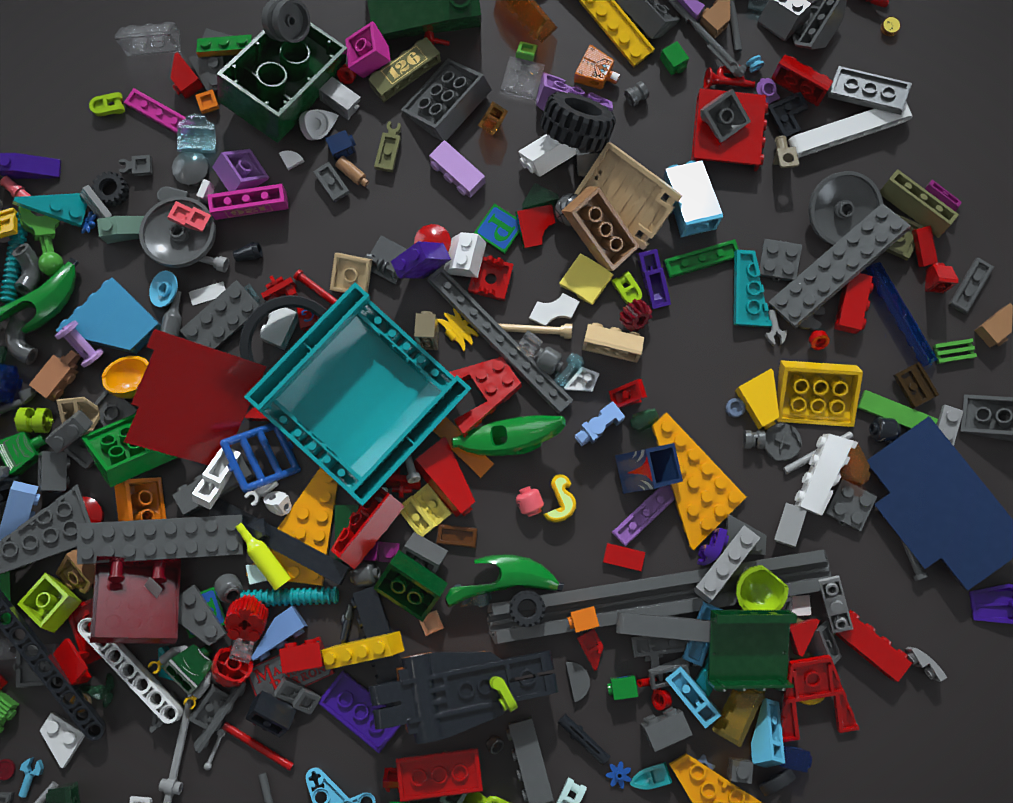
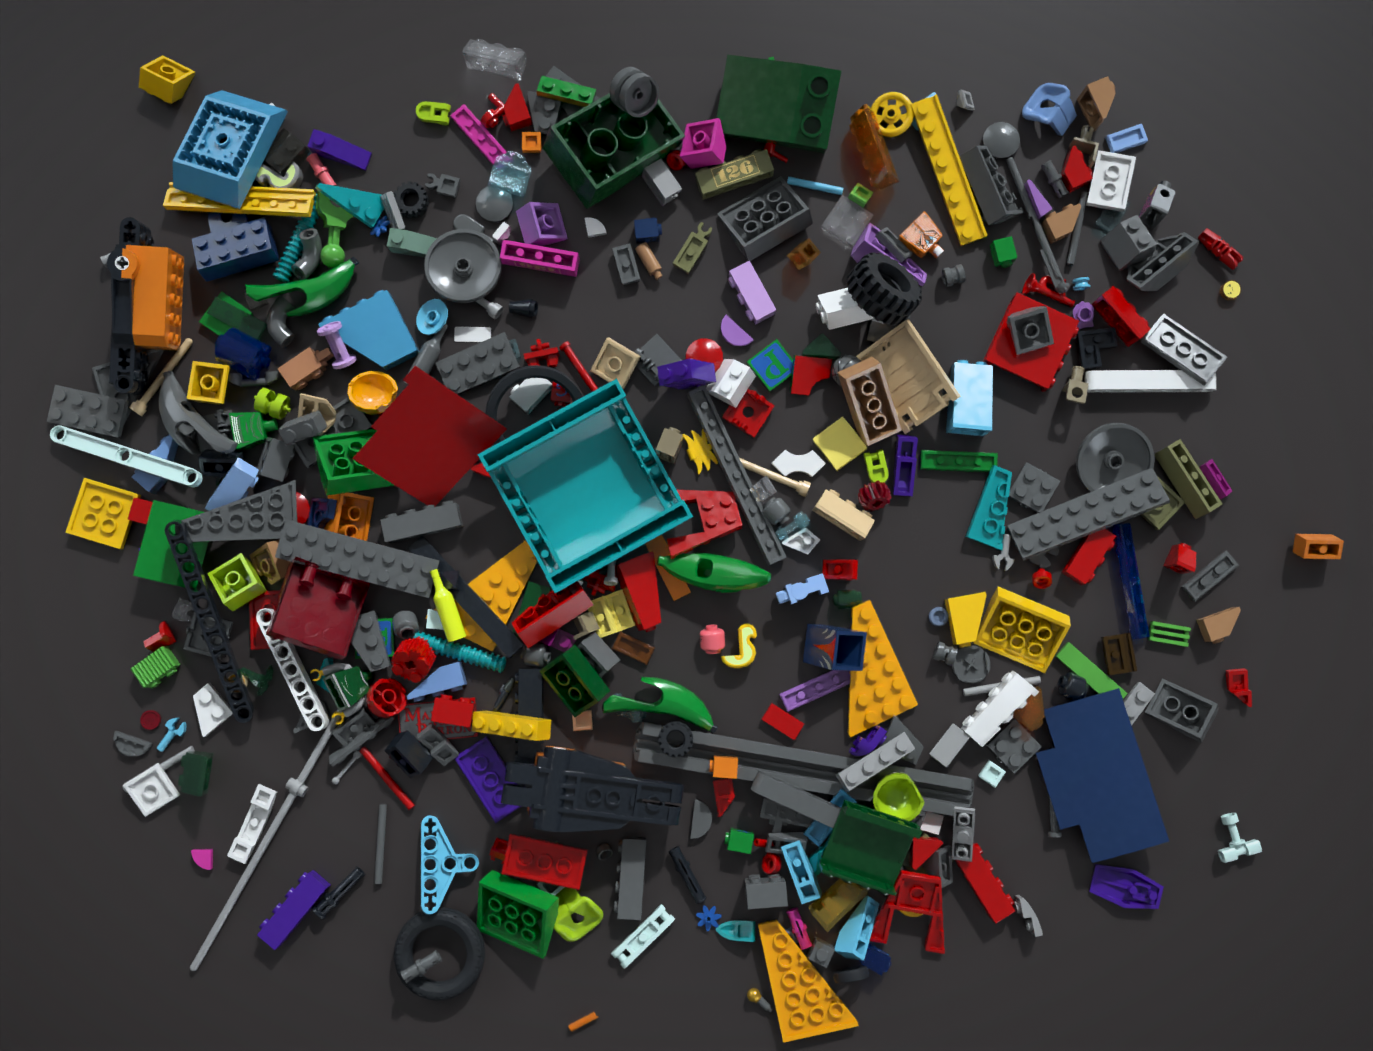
camera: 15 degrees right, 5 degrees up
(72, 662) = (242, 644): red panel -> none
(112, 506) = (321, 512): none -> dark blue tile
(153, 587) = (337, 601): light grey sticker -> none
(162, 91) = (490, 118): none -> red plate
(189, 217) = (478, 256): coral slope -> none
(213, 480) = (426, 517): white slope -> none
(241, 650) = (400, 687): clear tile -> none
(261, 479) = (468, 535): blue bar -> none
(262, 491) = (465, 542): white bar -> none
(278, 503) = (476, 560): white piece -> none
(316, 123) = (630, 201): white piece -> none
(403, 528) = (585, 624): none -> dark tan panel
(453, 212) = (733, 333): none -> medium lavender tile
(482, 56) = (815, 185): none -> medium azure bar
(506, 700) = (628, 817): lime plate -> none
(572, 83) = (893, 244): none -> dark grey tile
(719, 764) = (794, 916): none -> dark pink pin
(839, 539) = (991, 773): none -> light aqua tile
(924, 246) = (1178, 522): red tile -> none

